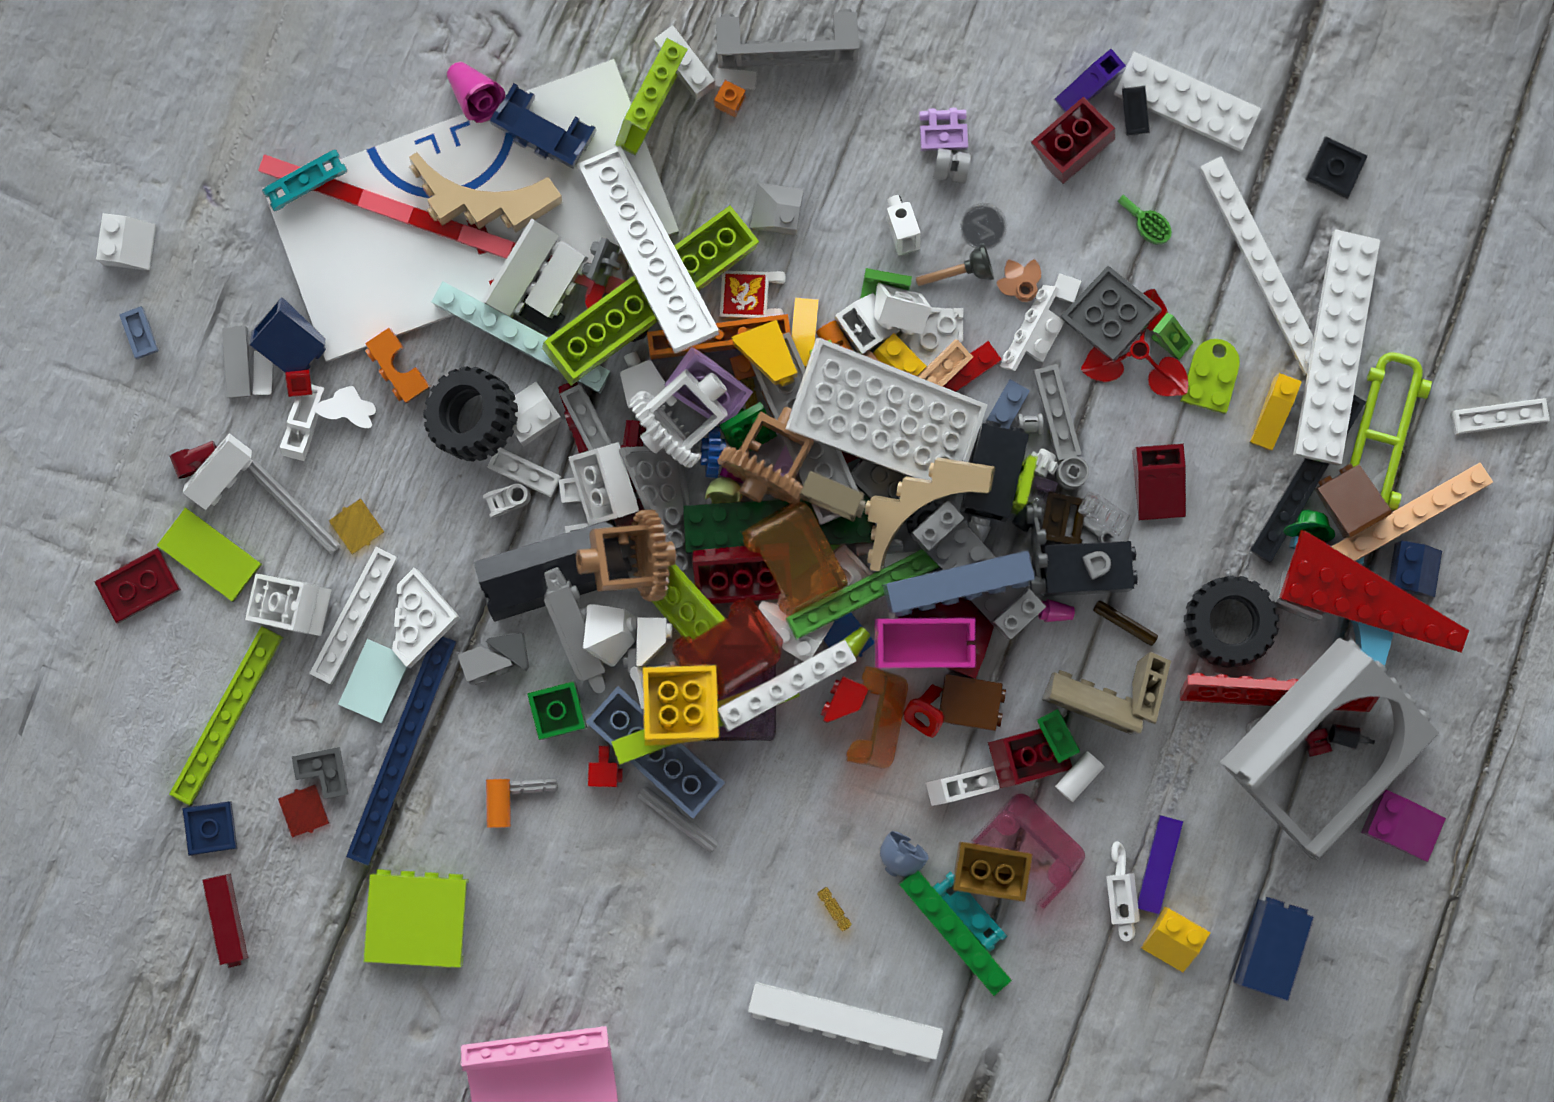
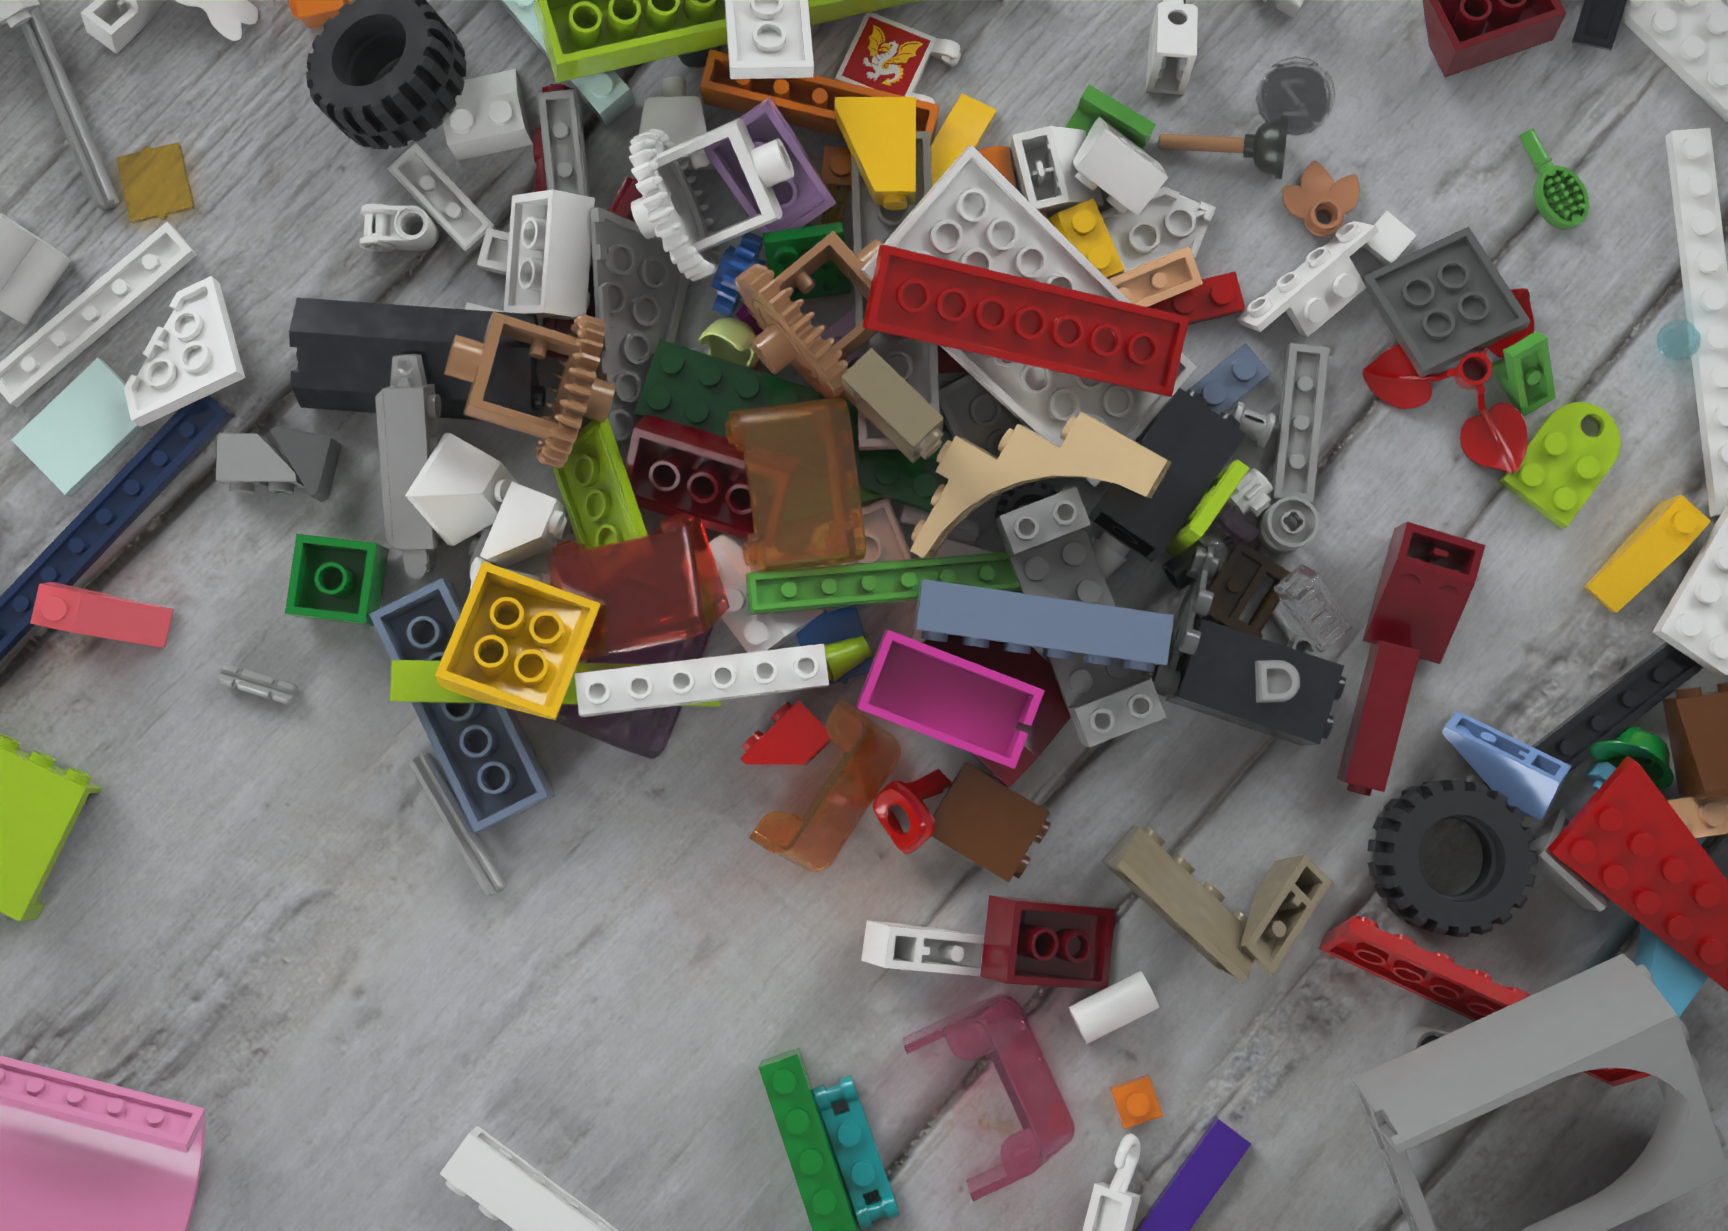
camera: 25 degrees right, 0 degrees up
(433, 781) = (101, 615): none -> coral slope
(498, 803) = (190, 688): orange pin -> none
(604, 773) = (370, 704): red brick -> none
(834, 909) = (644, 1062): clear yellow axle -> none
(886, 420) = (1024, 321): none -> red plate
(901, 856) = (781, 1021): sand blue cylinder -> none
(992, 871) = (915, 1104): pearl gold slope -> none
(1056, 611) = (1178, 732): dark pink cone -> none
(1058, 735) = (1105, 929): green panel -> none
(1112, 823) = (1136, 1101): none -> orange plate
(1125, 623) = (1280, 793): dark brown axle -> none
(1162, 560) = (1378, 717): none -> dark red brick
(1244, 559) = (1508, 765): none -> medium blue slope
(1248, 283) = (1678, 339): none -> clear light blue tile
(1319, 747) = (1517, 1113): dark red wheel -> none
(1351, 737) = (1575, 1118): black piece -> none

